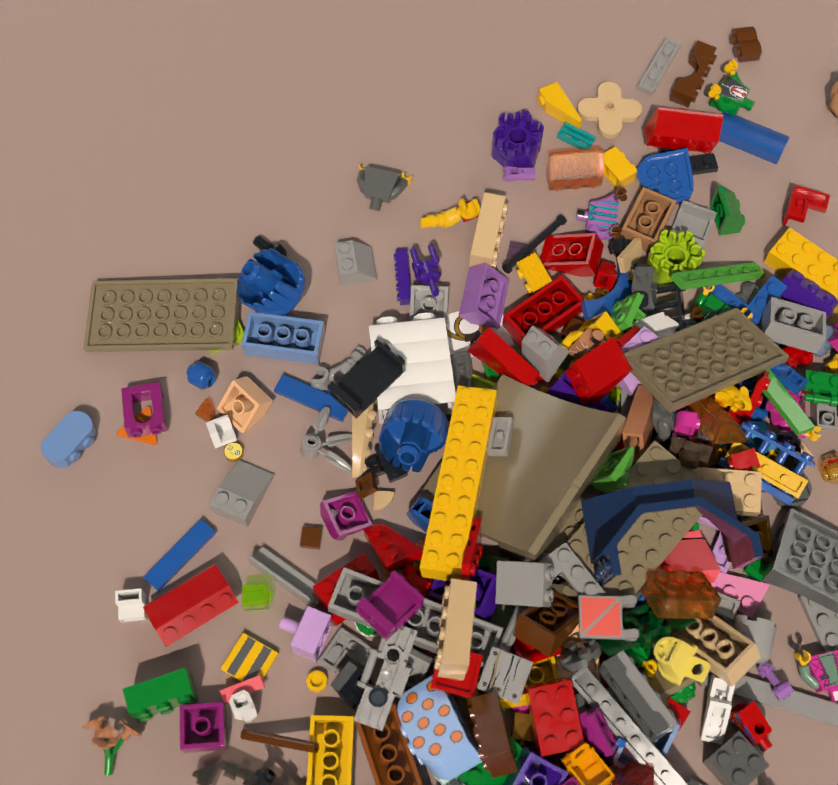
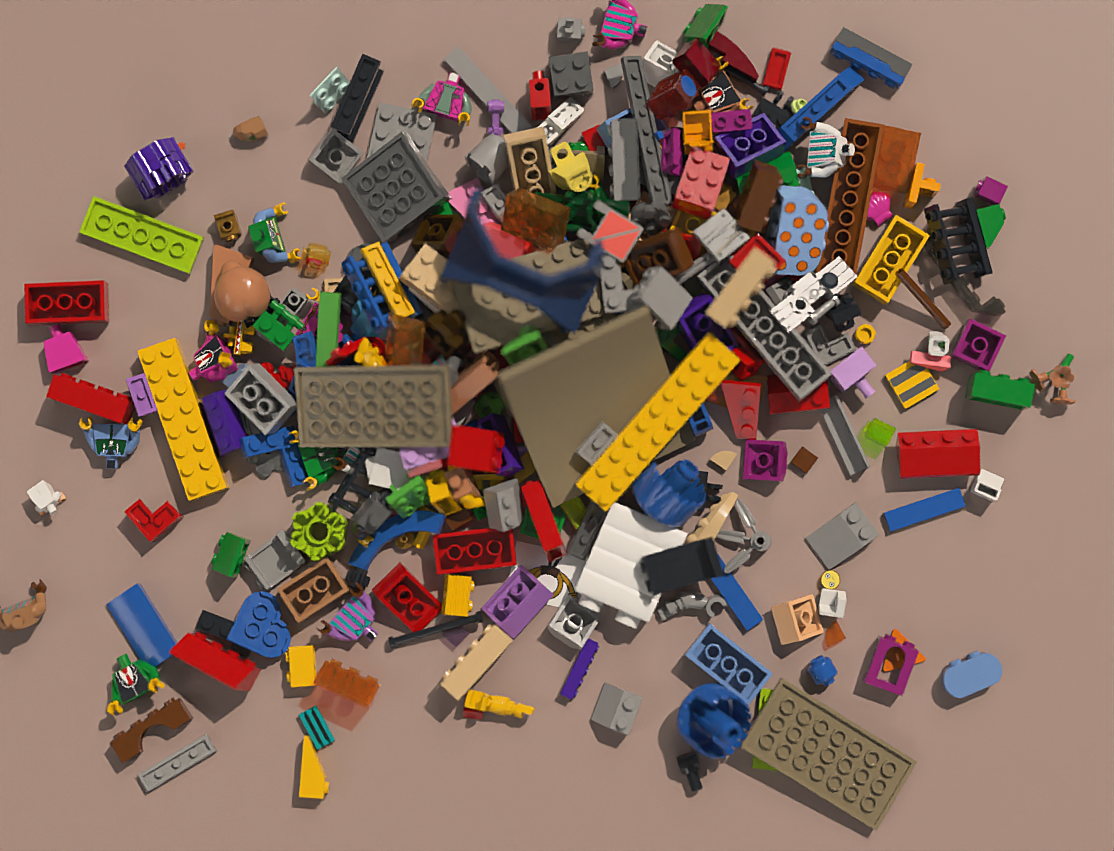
camera: 145 degrees left, 20 degrees up
(366, 485) = (731, 477): reddish brown plate -> none
(381, 185) = (545, 779): dark grey torso -> none
(391, 605) = (781, 341): magenta panel -> none
(427, 270) = (556, 655): dark purple plant -> none
(472, 552) = (690, 345): red wing -> none
(515, 173) = (397, 715): medium lavender bar -> none
(517, 140) = (373, 763): dark purple piece -> none
(606, 276) = (392, 554): red brick -> none
(609, 110) = (274, 723): tan plant -> none
(630, 255) = (357, 560): tan tile -> none
(686, 422) = (431, 356): dark pink plate -> none
(717, 275) = (293, 488): bright green tile -> none
(744, 460) = (404, 296): red brick -> none
(745, 44) = (72, 734): reddish brown brick -> none

